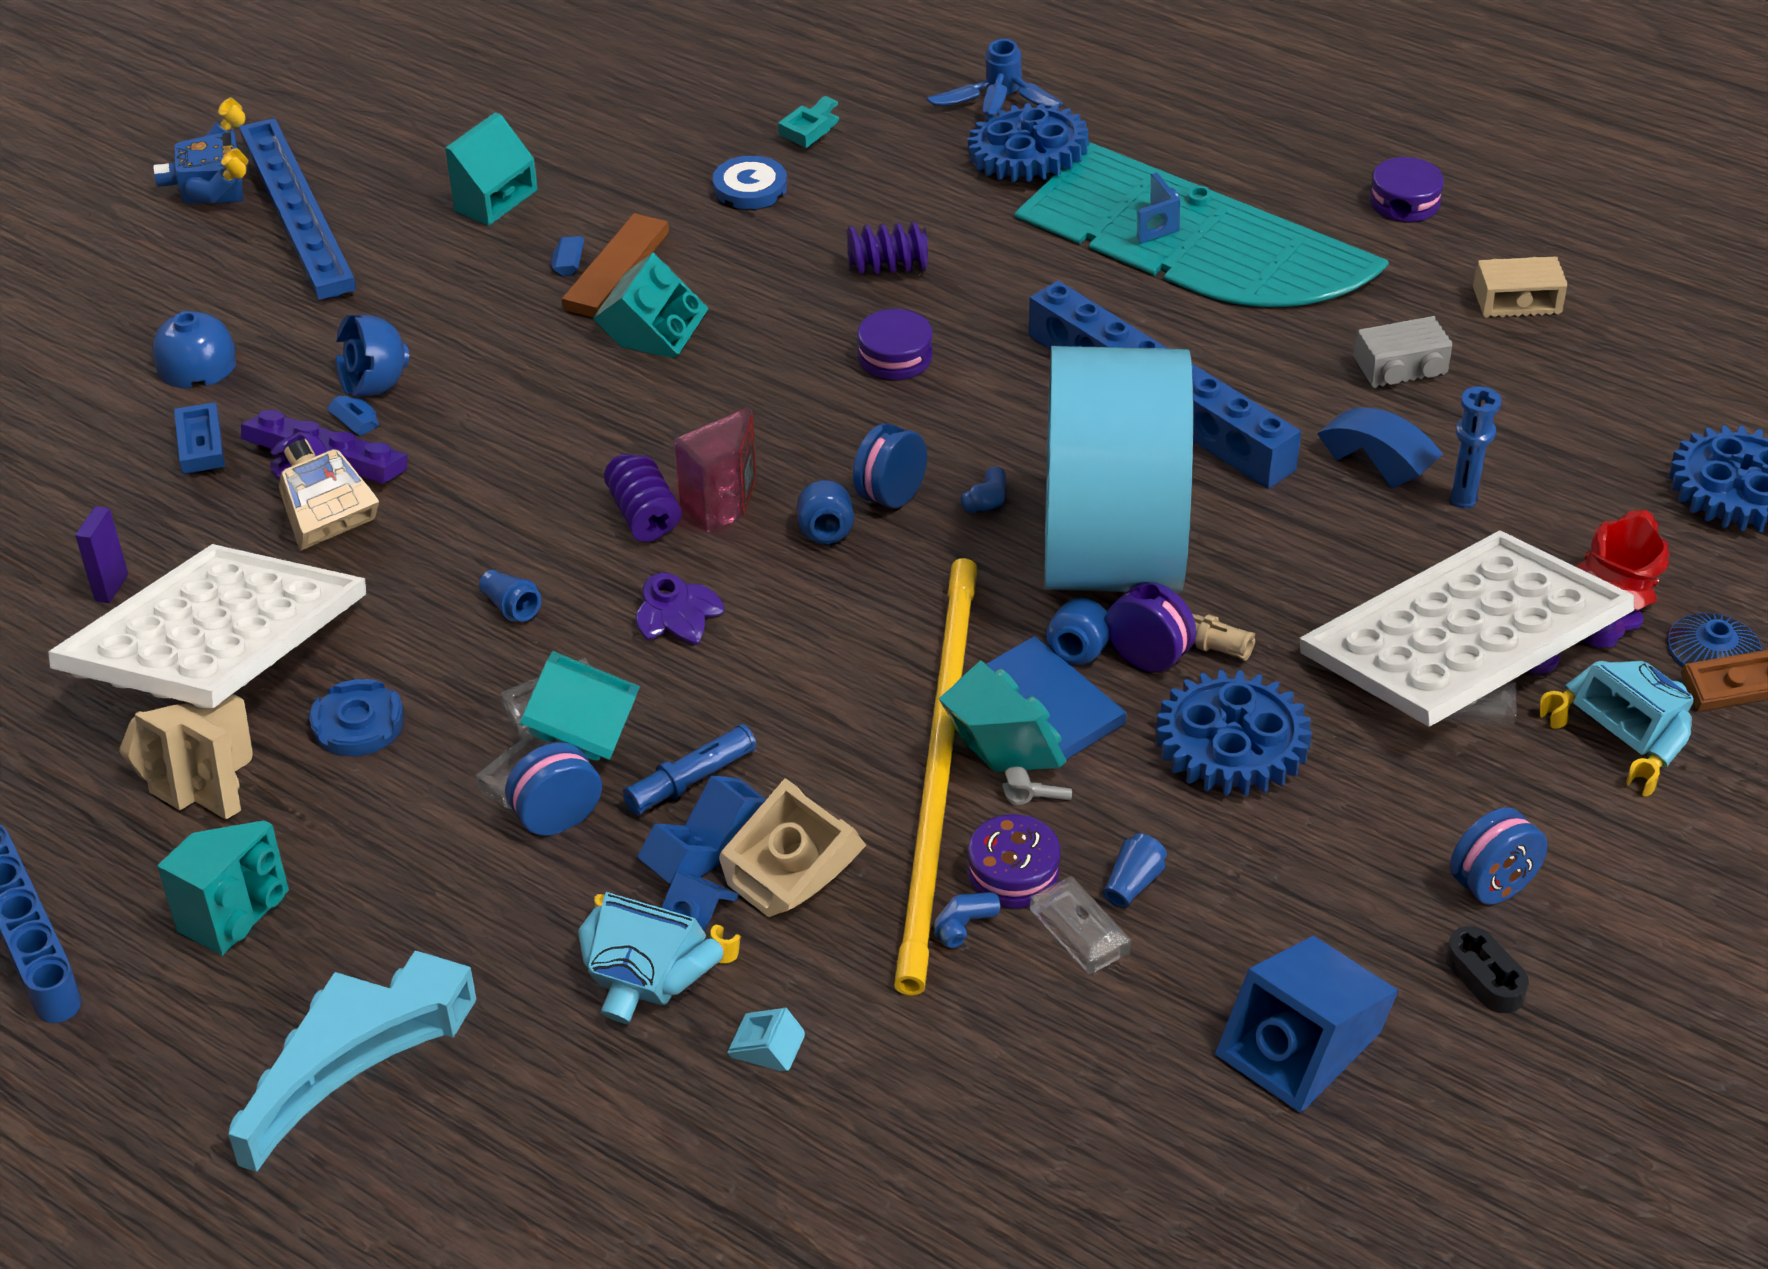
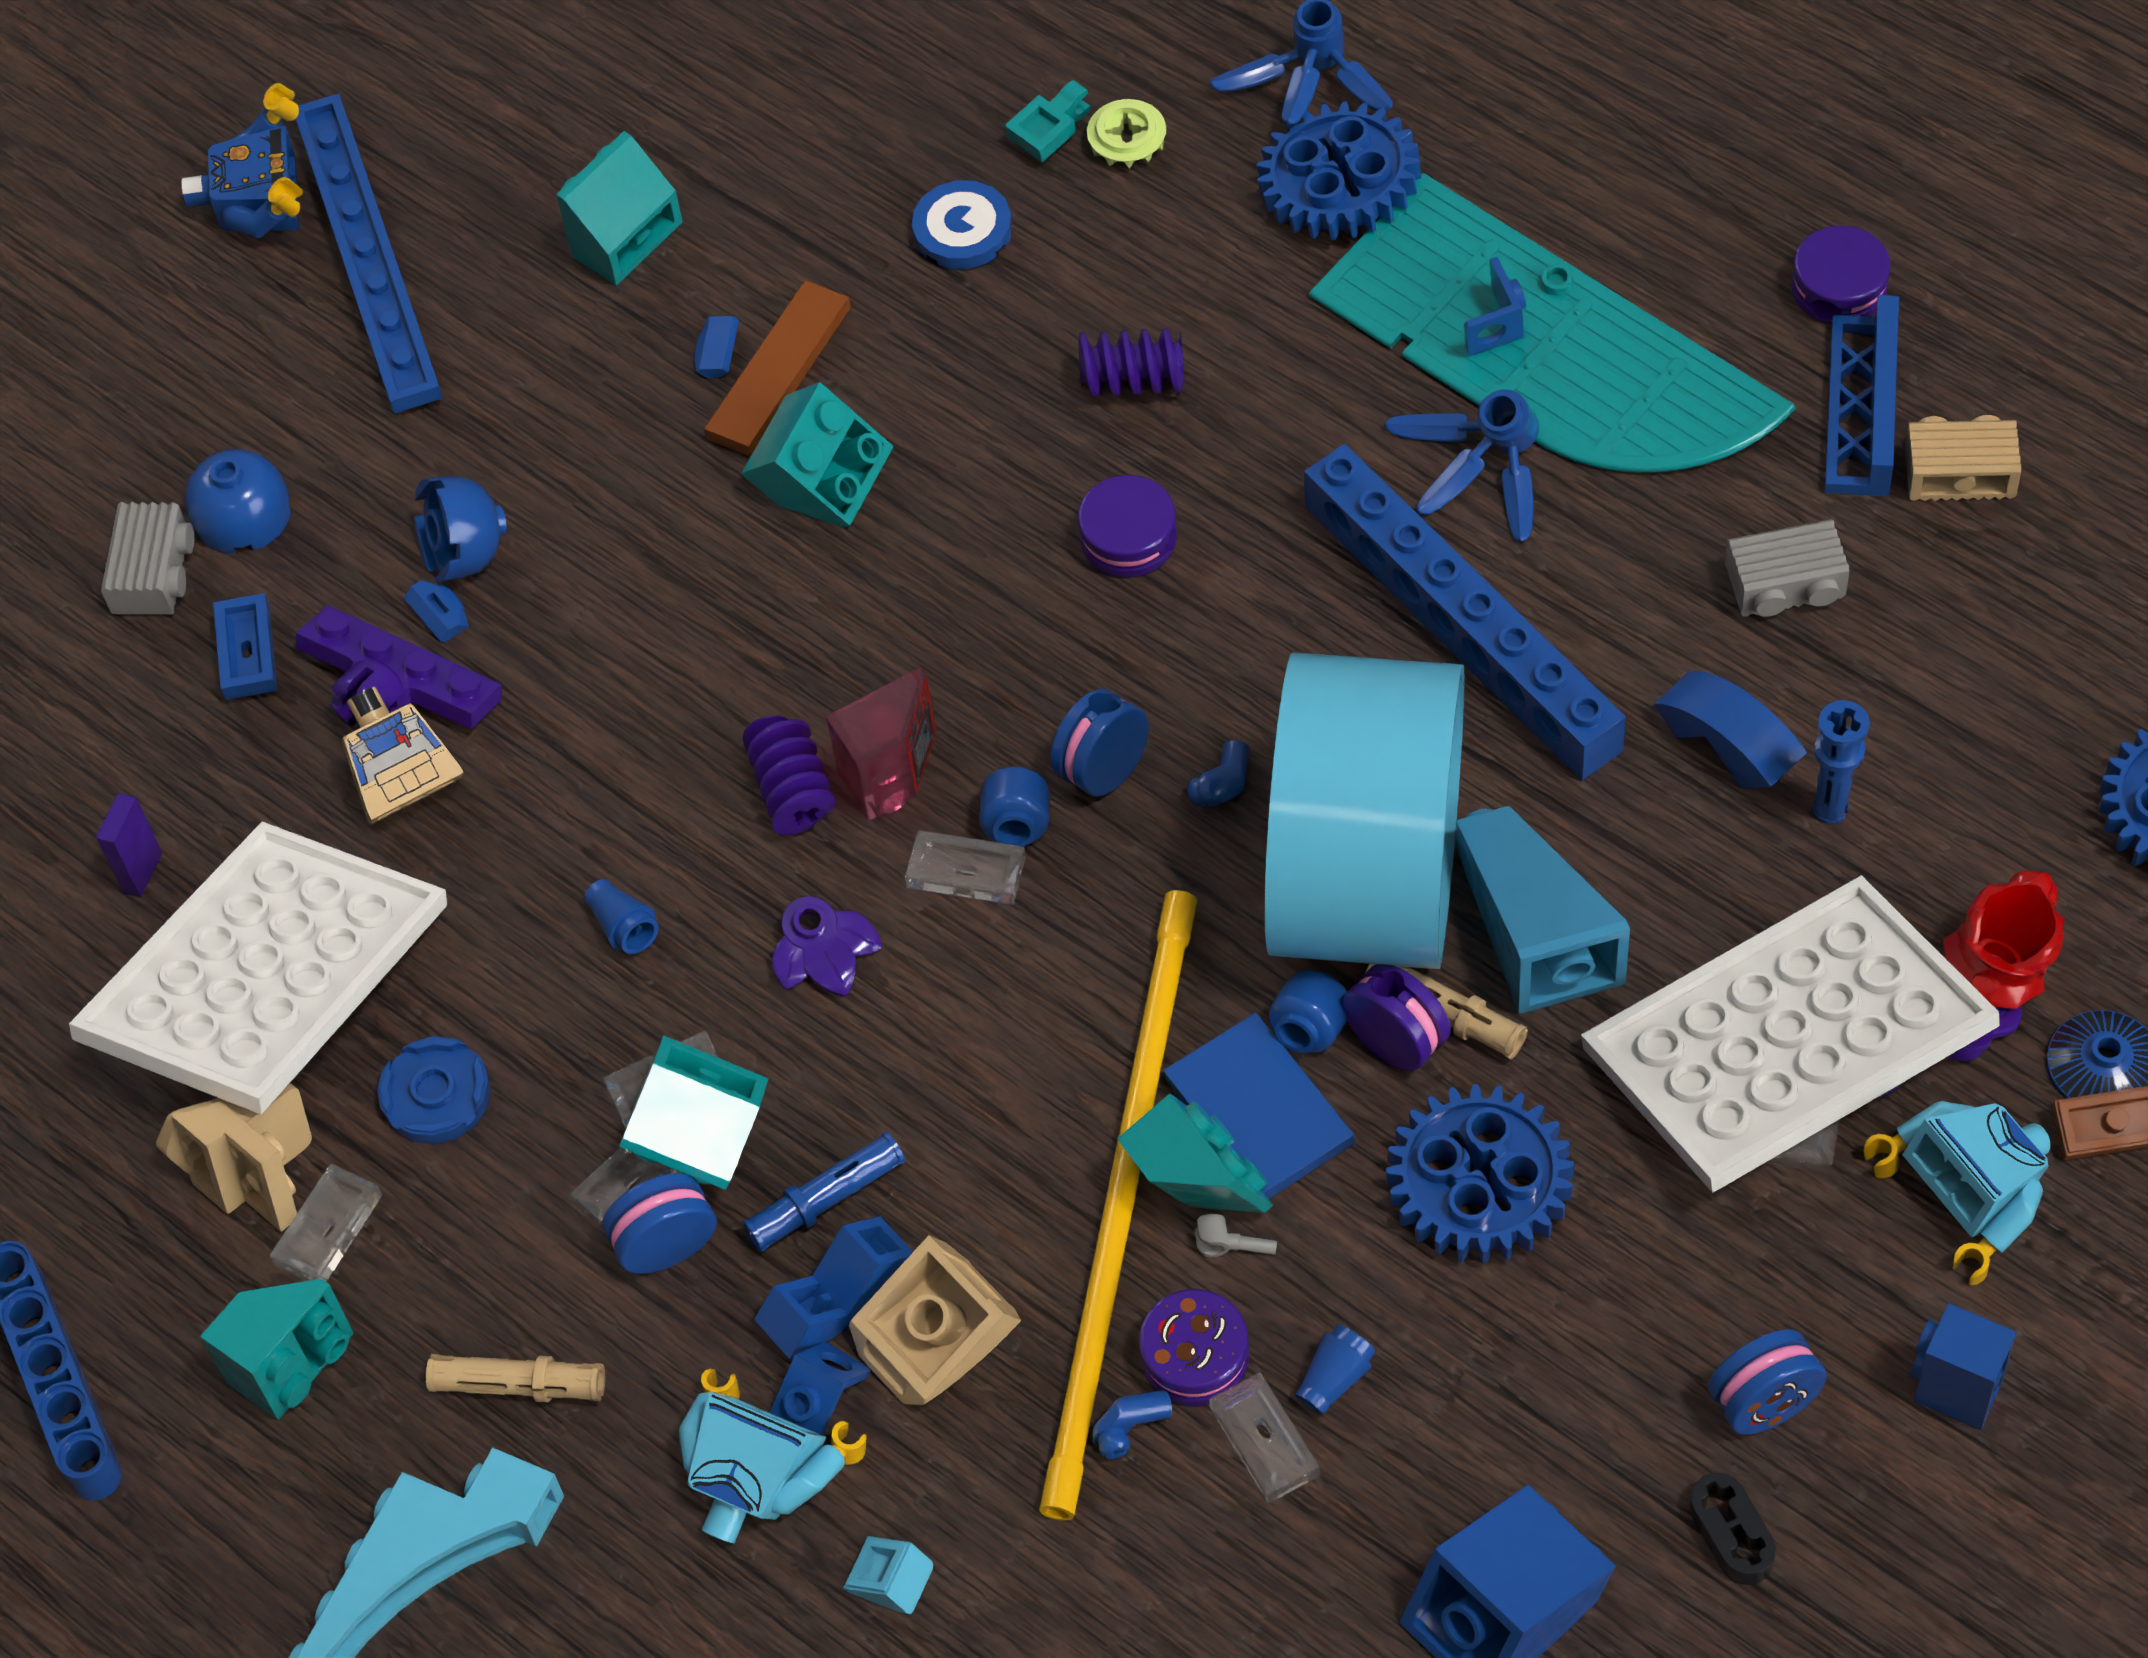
camera: 10 degrees right, 15 degrees up
(120, 386) = (146, 559): none -> light grey brick
(272, 798) = (337, 1201): none -> clear piece
(428, 909) = (538, 1378): none -> tan pin
(789, 553) = (941, 858): none -> clear piece
(880, 126) = (1107, 125): none -> yellowish green gear
(1176, 278) = (1507, 425): none -> blue plant
(1258, 562) = (1540, 914): none -> dark azure slope
(1449, 261) = (1881, 393): none -> blue fence
(1658, 834) = (1961, 1365): none -> blue brick

